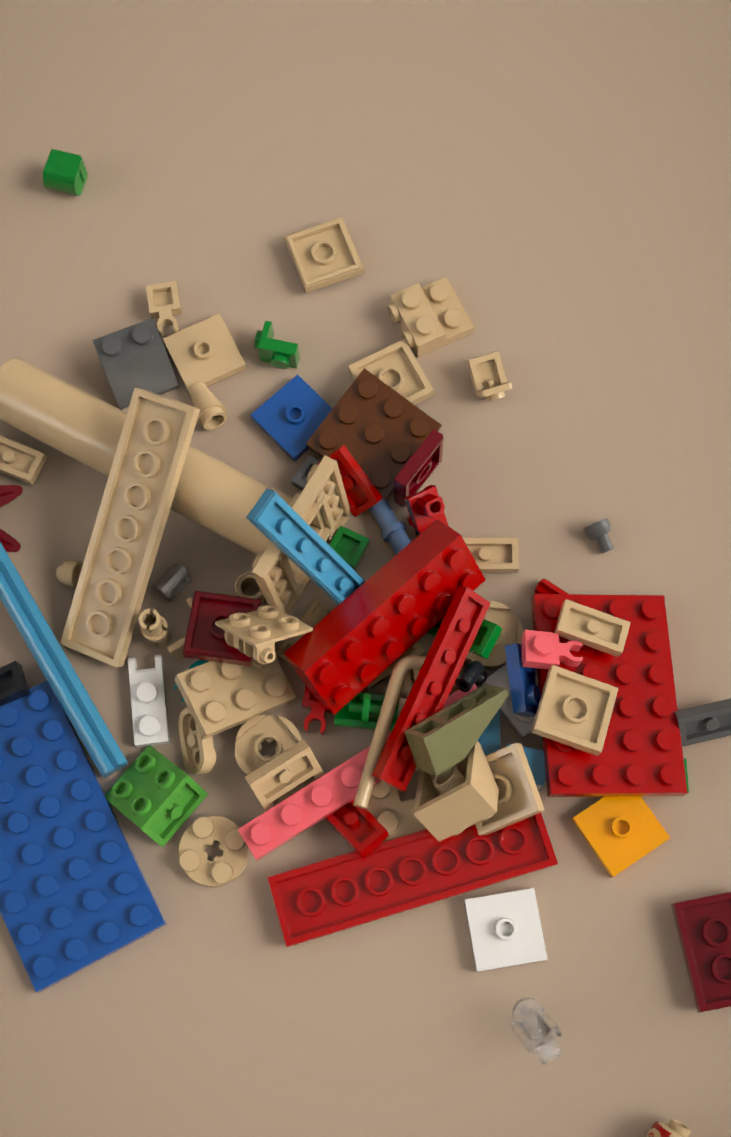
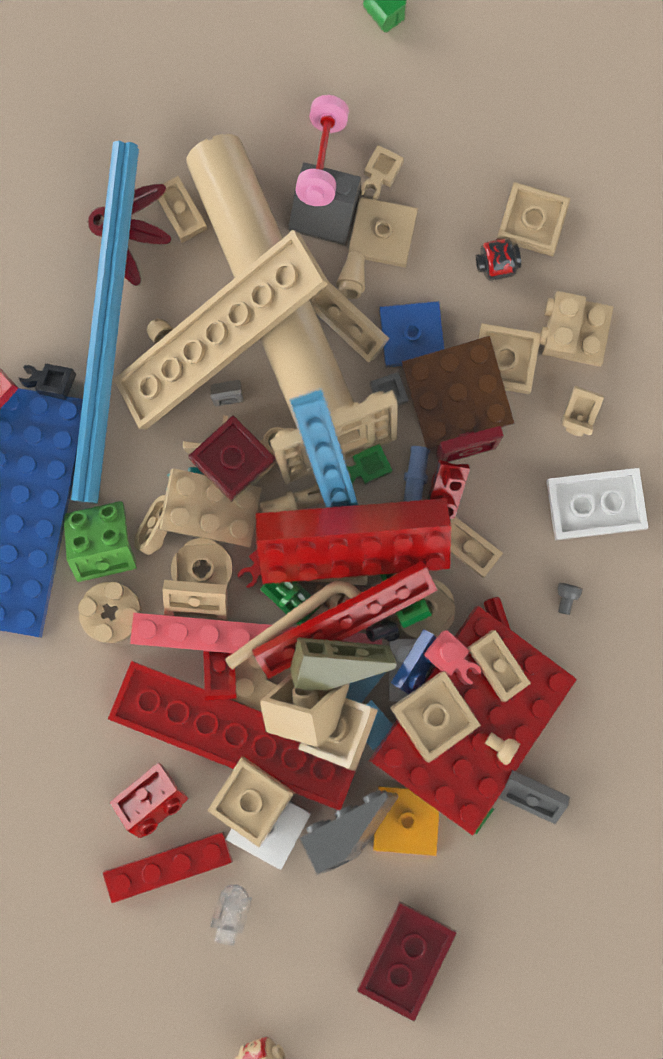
camera: 40 degrees right, 10 degrees up
(120, 348) = (316, 185): none -> bright pink axle
(149, 704) = (144, 470): white hinge -> none
(154, 627) = (188, 417): tan pin -> none
(238, 445) = (349, 322): none -> tan plate
(259, 630) = (254, 483): tan hinge -> none
(276, 352) = (436, 273): green bracket -> none
(321, 305) = (498, 259): none -> black head
(358, 487) = (411, 415): red plate -> none
(381, 992) = (148, 801): none -> bracket
(444, 1041) = (167, 867): none -> red plate
(474, 916) = (251, 801): none -> tan plate
(562, 441) = (597, 504): none -> white plate
(580, 879) = (343, 839): none -> dark grey slope
(655, 694) = (505, 749): none -> tan piece

